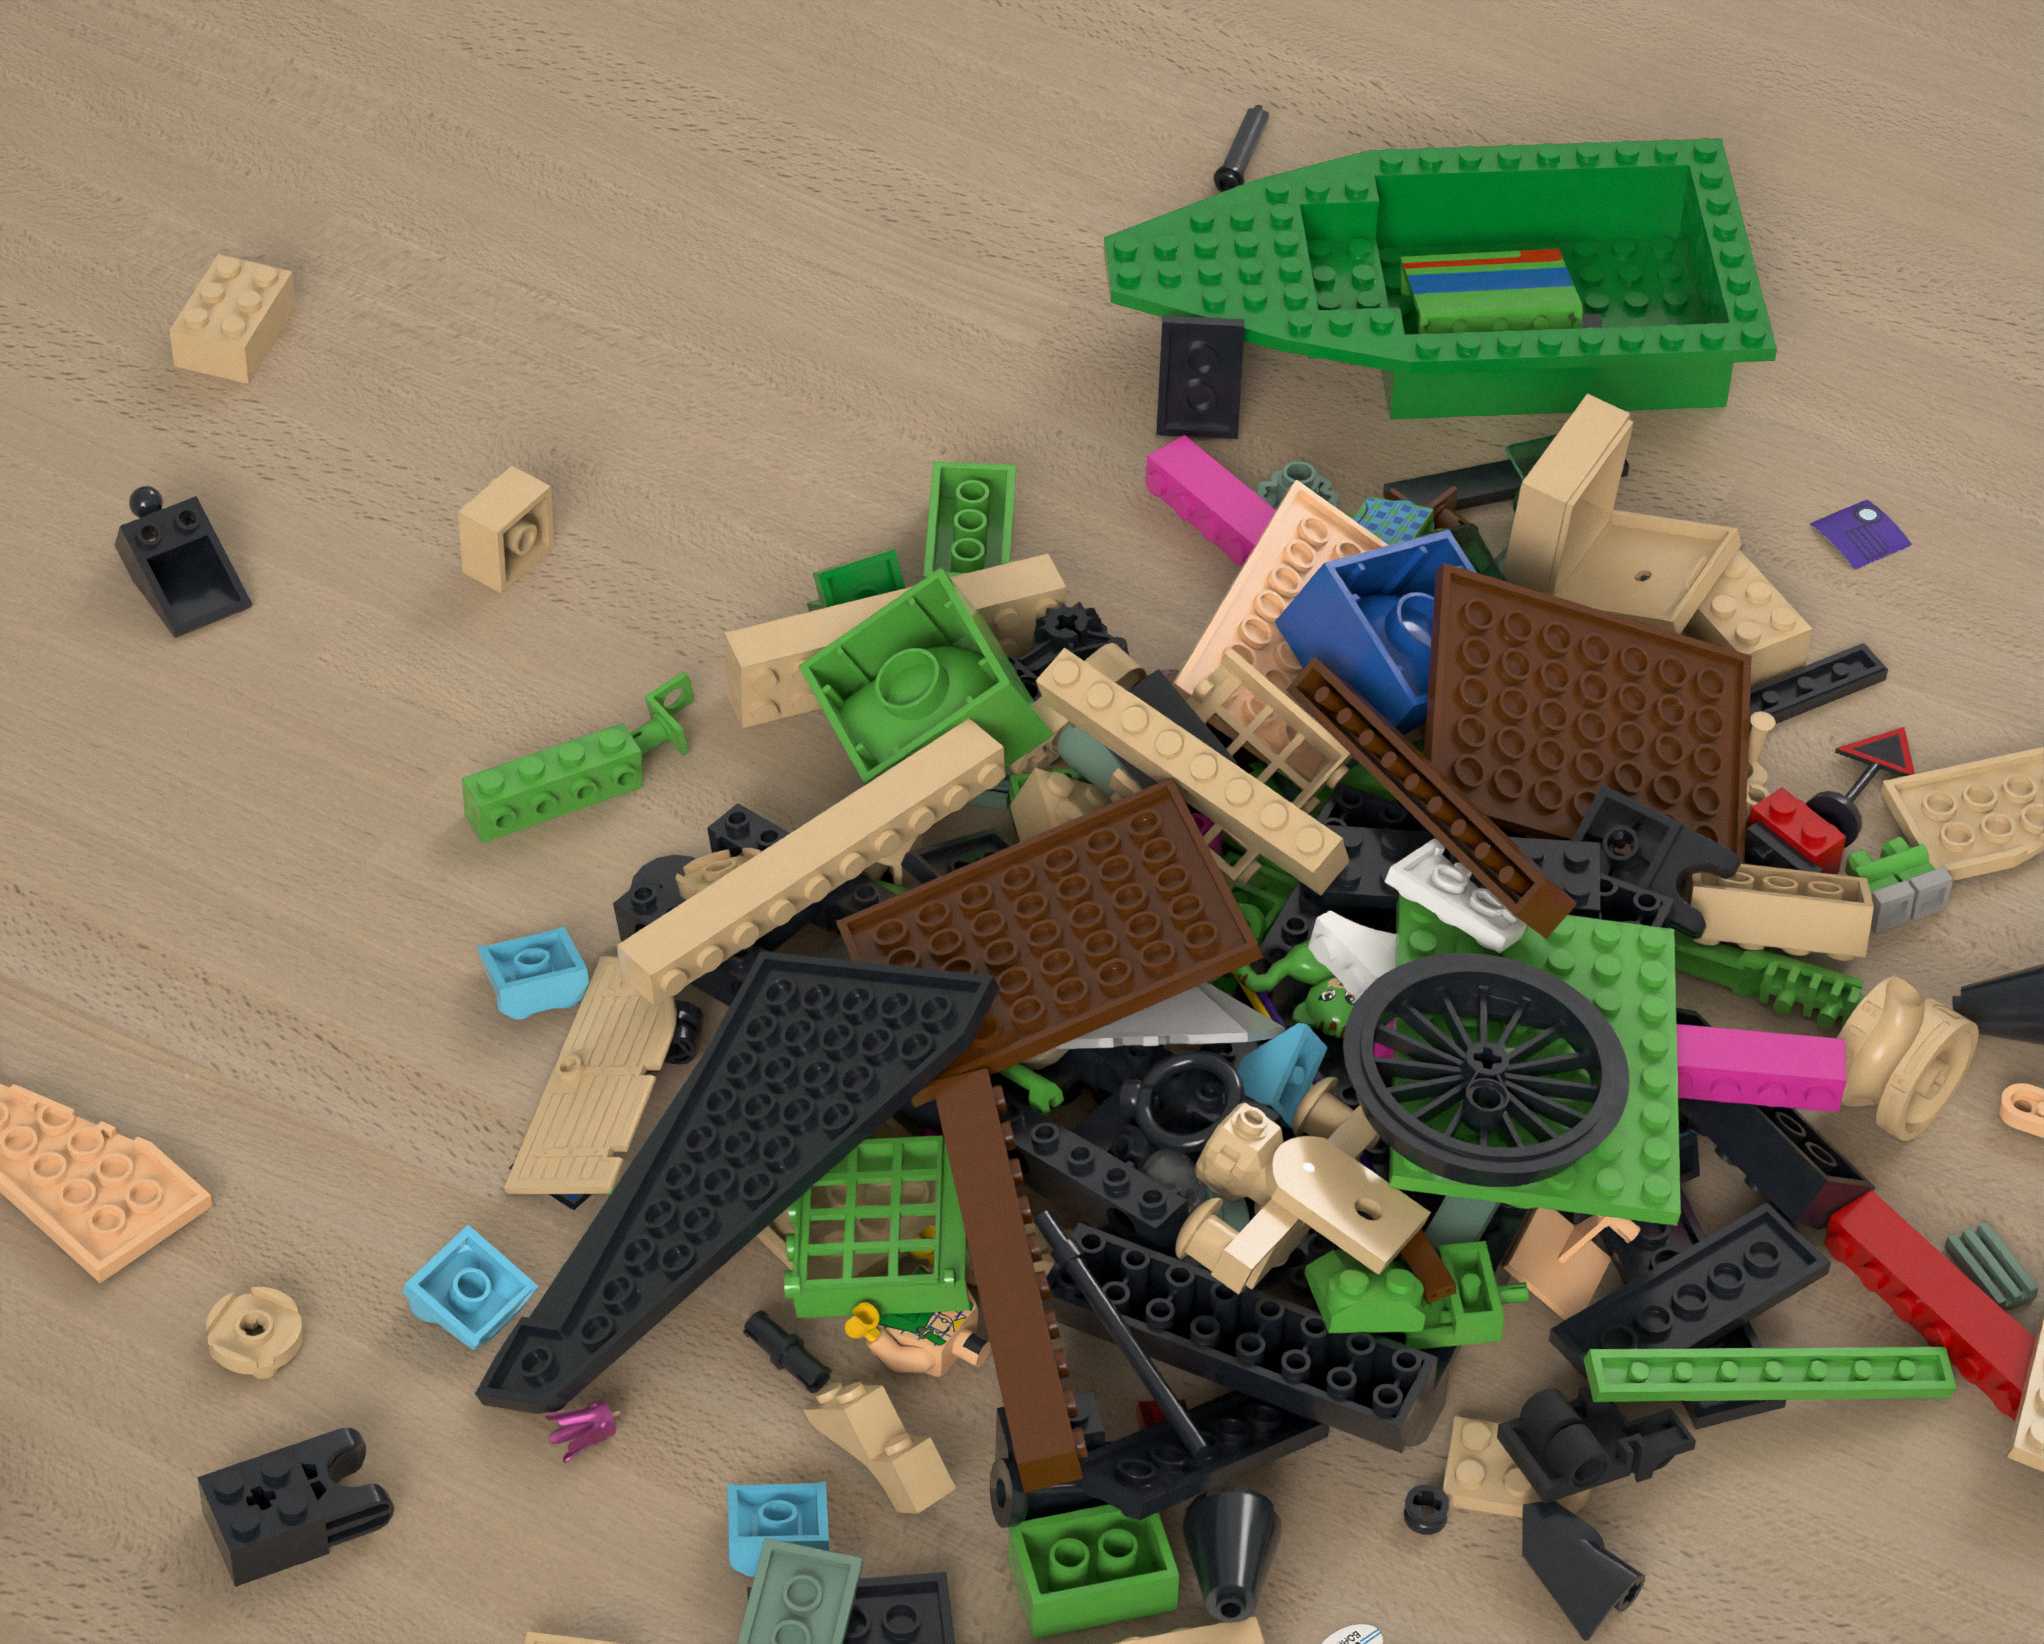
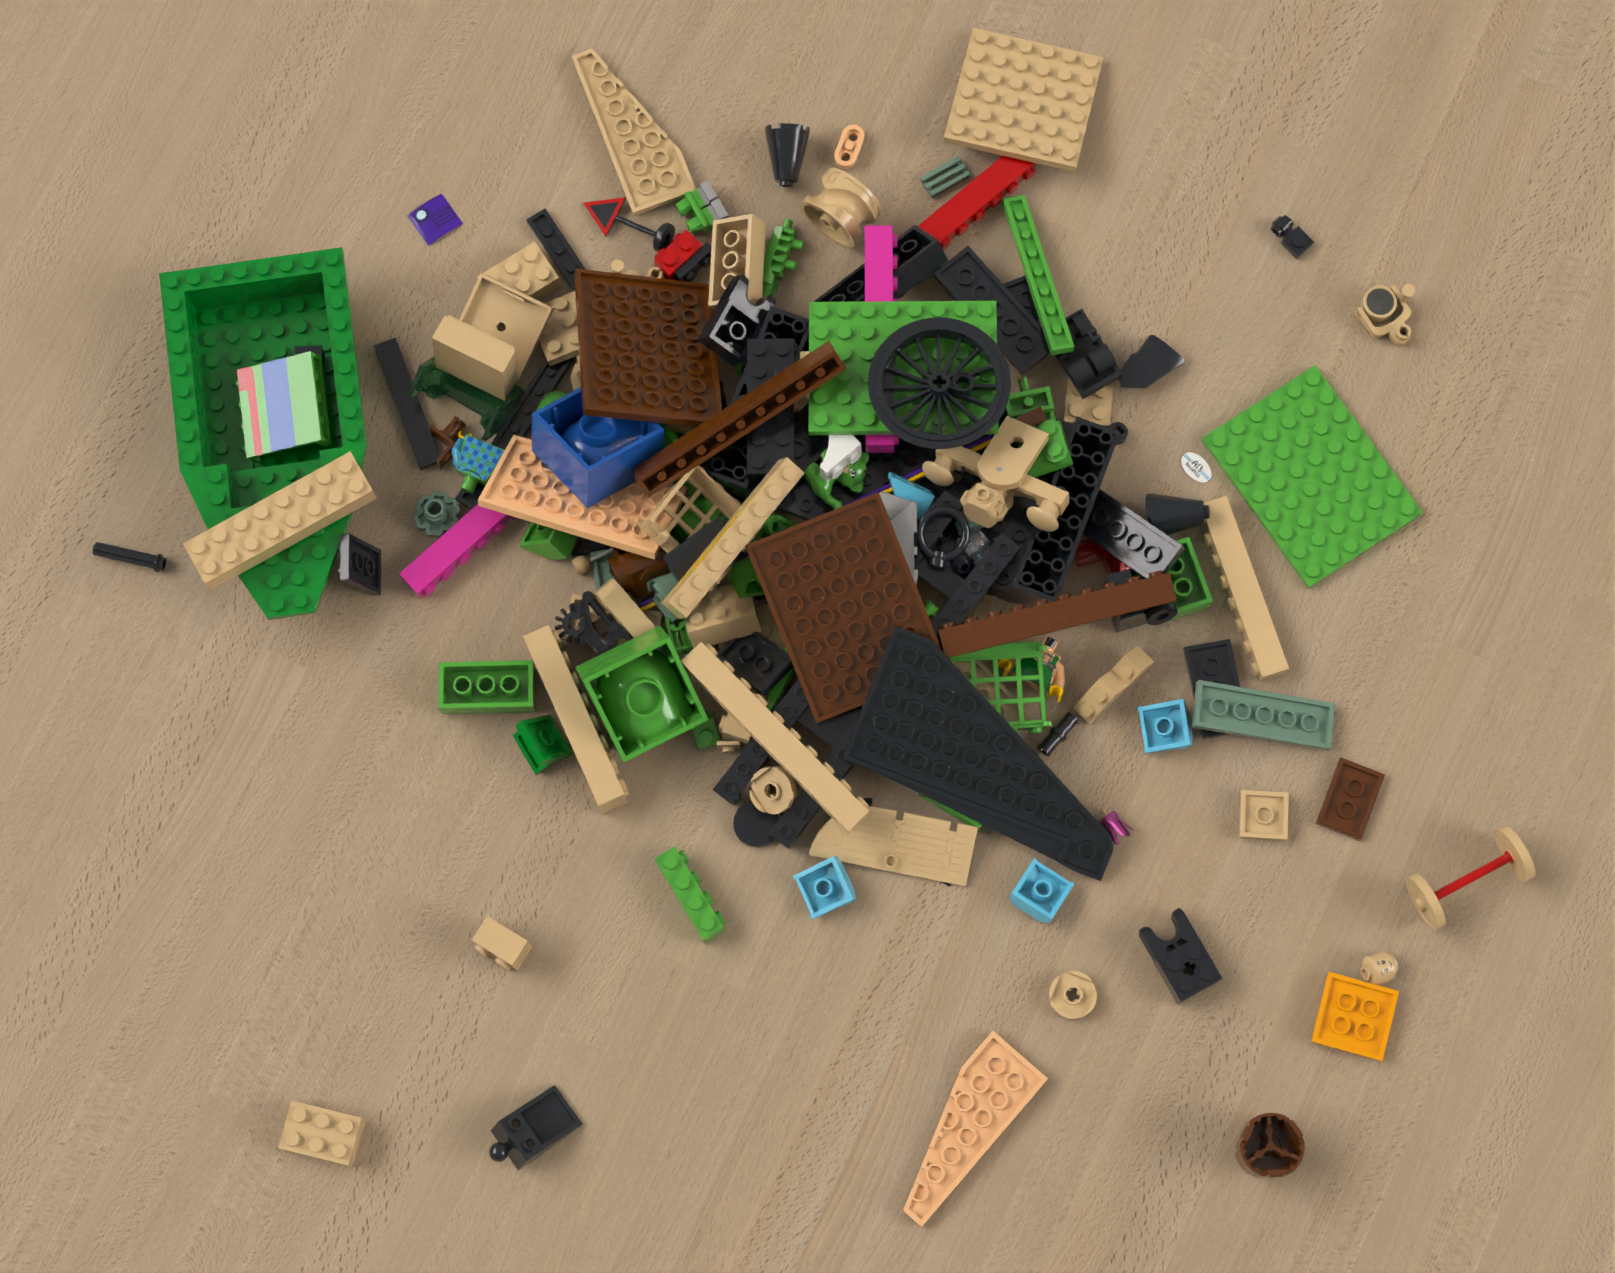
camera: 90 degrees left, 30 degrees up
(662, 725) = (642, 845): bright green bracket -> none
(1070, 1258) = (1045, 585): black bar -> none
(1269, 239) = (279, 521): none -> tan brick
(1457, 901) = (817, 406): white wing -> none

